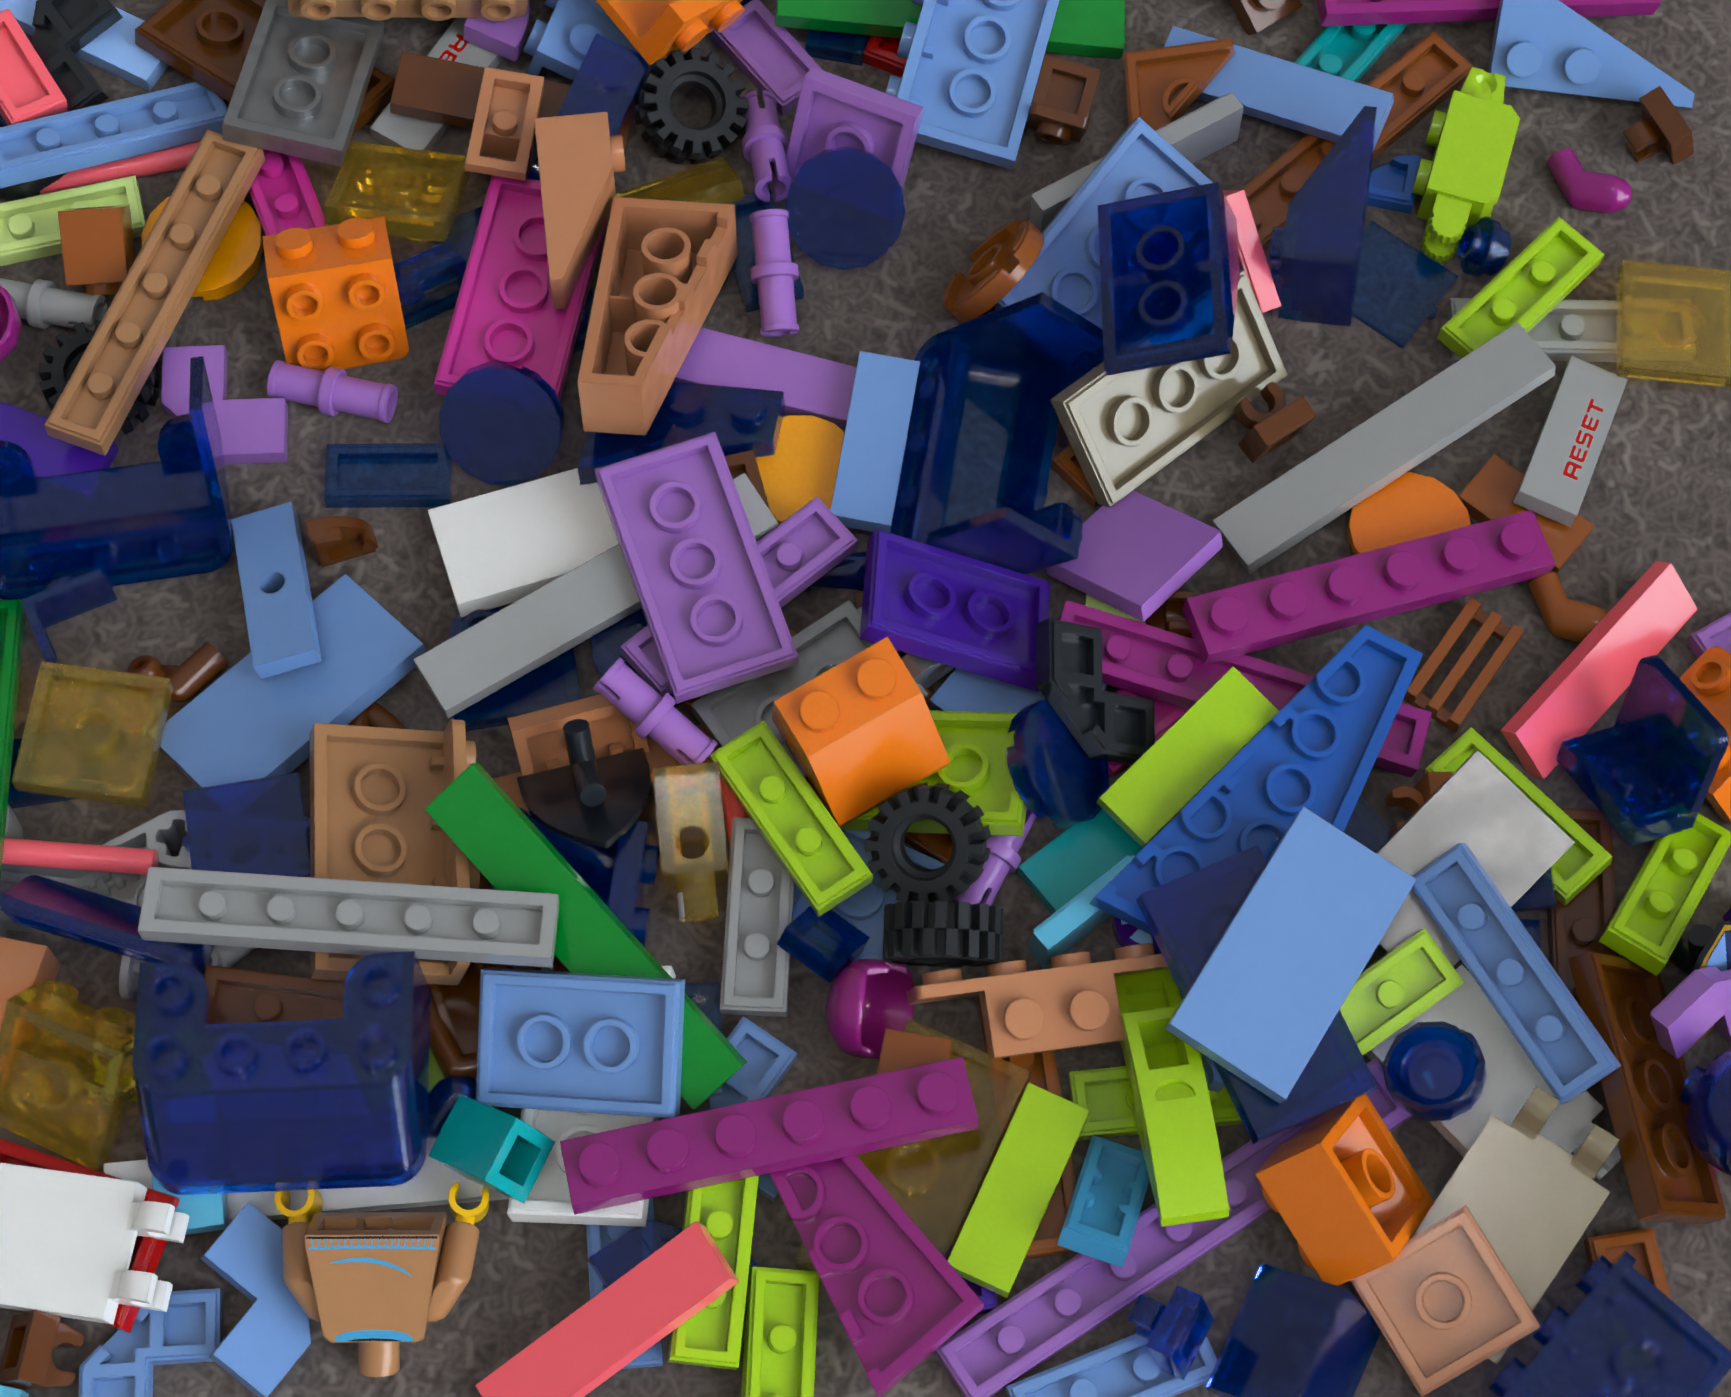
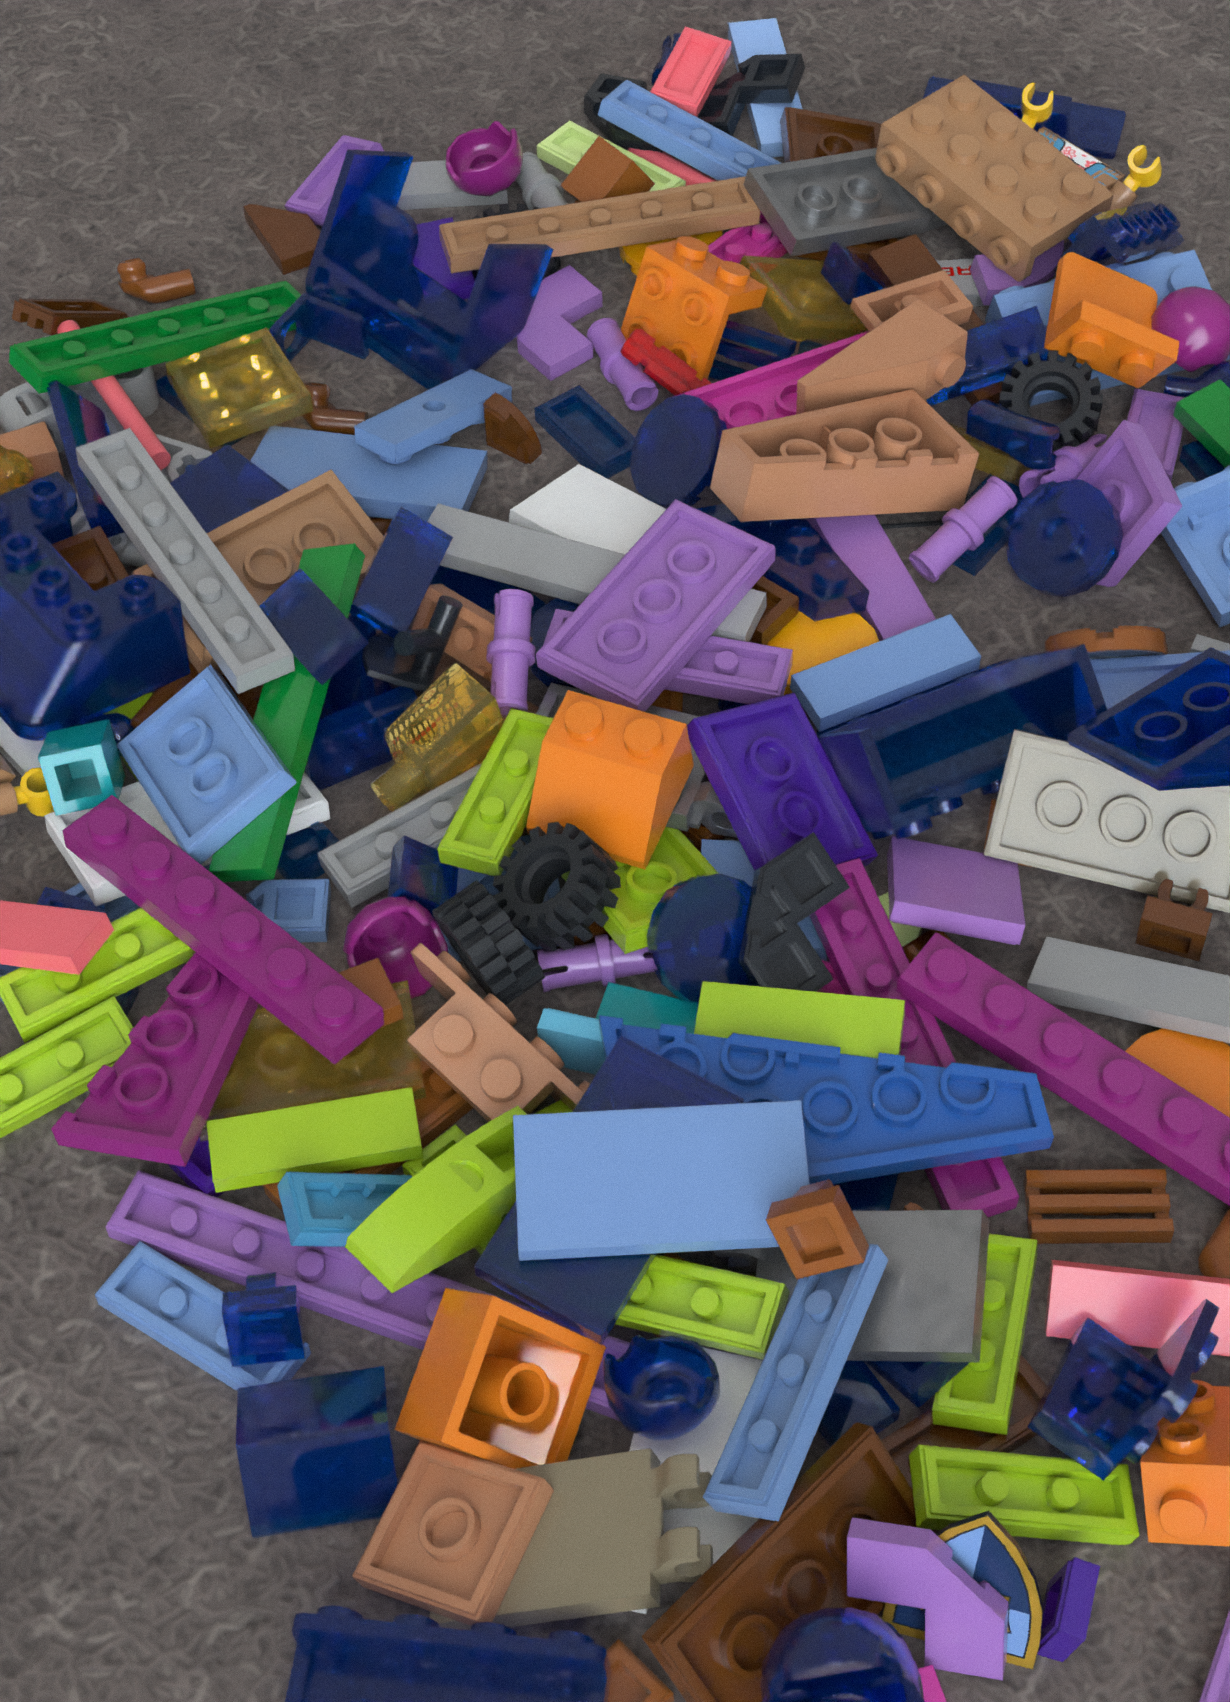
camera: 60 degrees right, 15 degrees down
(387, 361) = (661, 364): none -> red axle
(407, 138) = (849, 274): none -> clear blue slope
(490, 735) = (400, 573): none -> clear blue tile
(534, 858) = (312, 626): none -> clear blue tile
(716, 158) = (1018, 435): none -> clear blue bar
(1426, 873) = (817, 1230): none -> dark orange tile

